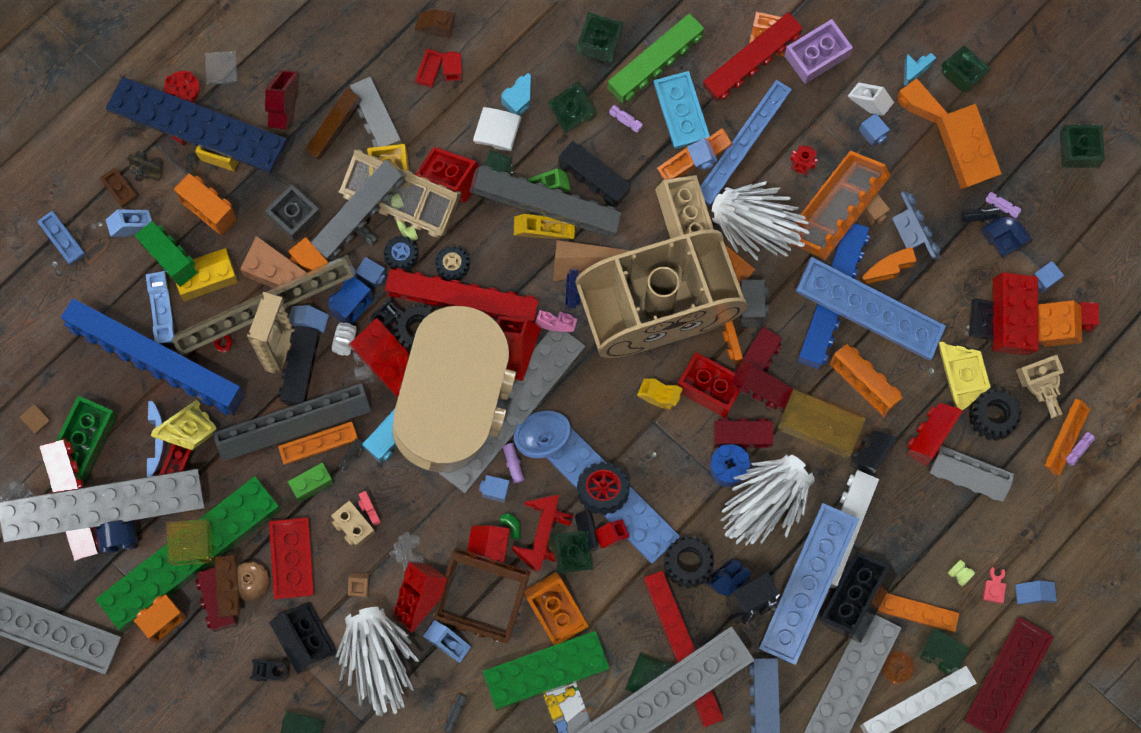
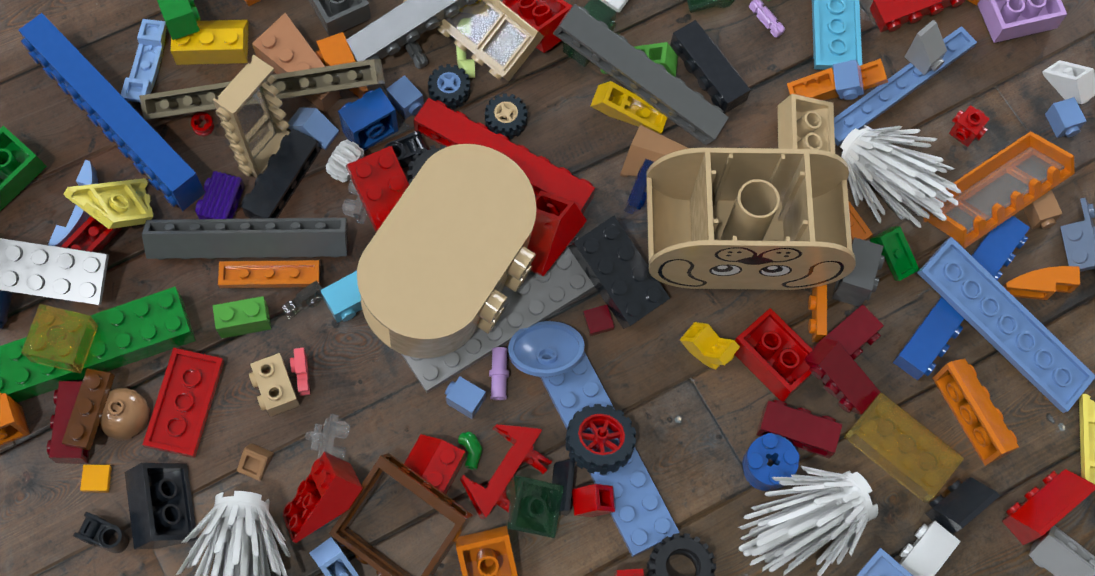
camera: 15 degrees right, 5 degrees down
(248, 633) = (96, 478): none -> light orange tile
(260, 397) = (220, 197): none -> dark purple brick
(562, 323) = (597, 214): bright pink slope -> none
(573, 399) = (598, 320): none -> dark red tile
(576, 360) = (618, 272): none -> black brick
(755, 111) = (927, 49): none -> light grey slope
(776, 278) = (896, 252): none -> green plate

